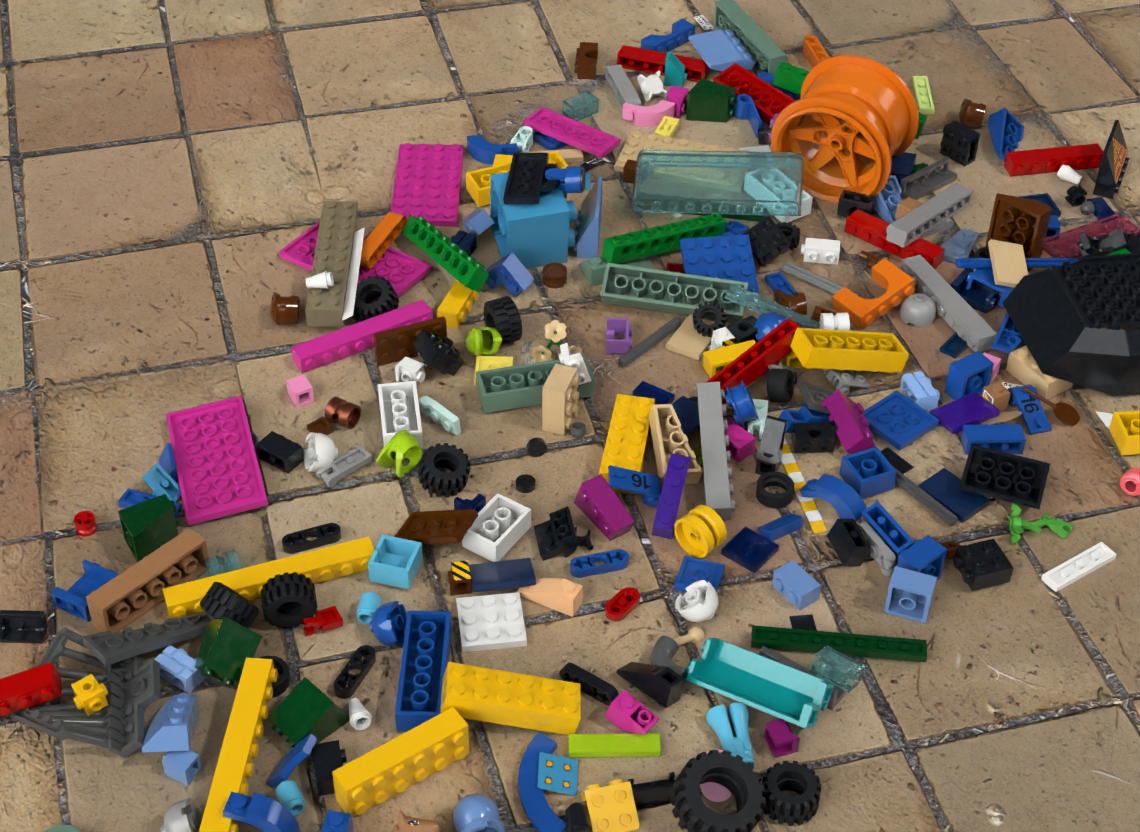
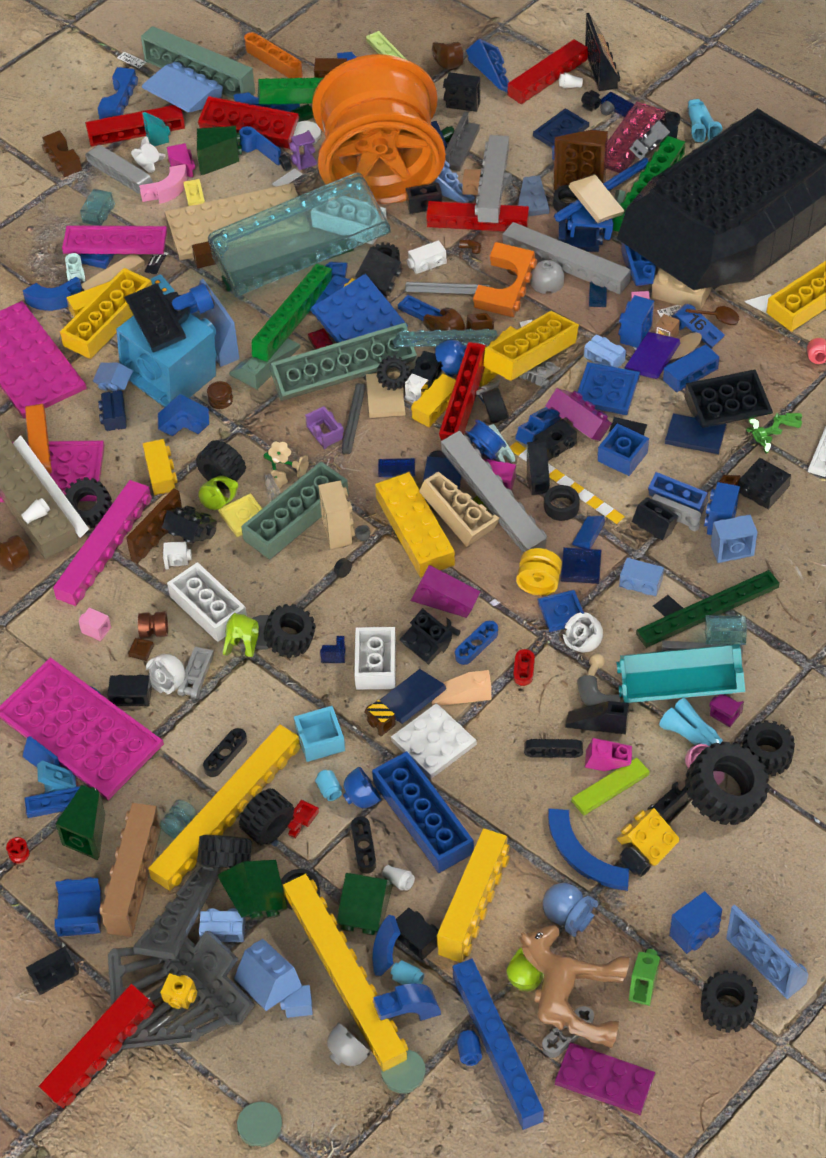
camera: 30 degrees left, 10 degrees up
(437, 526) = (329, 685): reddish brown plate -> none
(440, 414) = (239, 581): light aqua hinge -> none
(445, 253) = (70, 414): green brick -> none
(511, 698) = (513, 795): yellow brick -> none
(525, 483) = (359, 605): black tile -> none
(557, 773) = (588, 833): dark azure sticker -> none
(575, 361) = (324, 477): white bracket -> none
(637, 482) = (457, 556): blue door -> none
(671, 496) = (500, 566): dark purple arch -> none
(814, 396) = (533, 401): dark grey tile -> none
(837, 322) = (501, 326): white wheel -> none
(838, 494) = (616, 481): blue arch -> none
(925, 498) = (681, 449): dark grey axle -> none

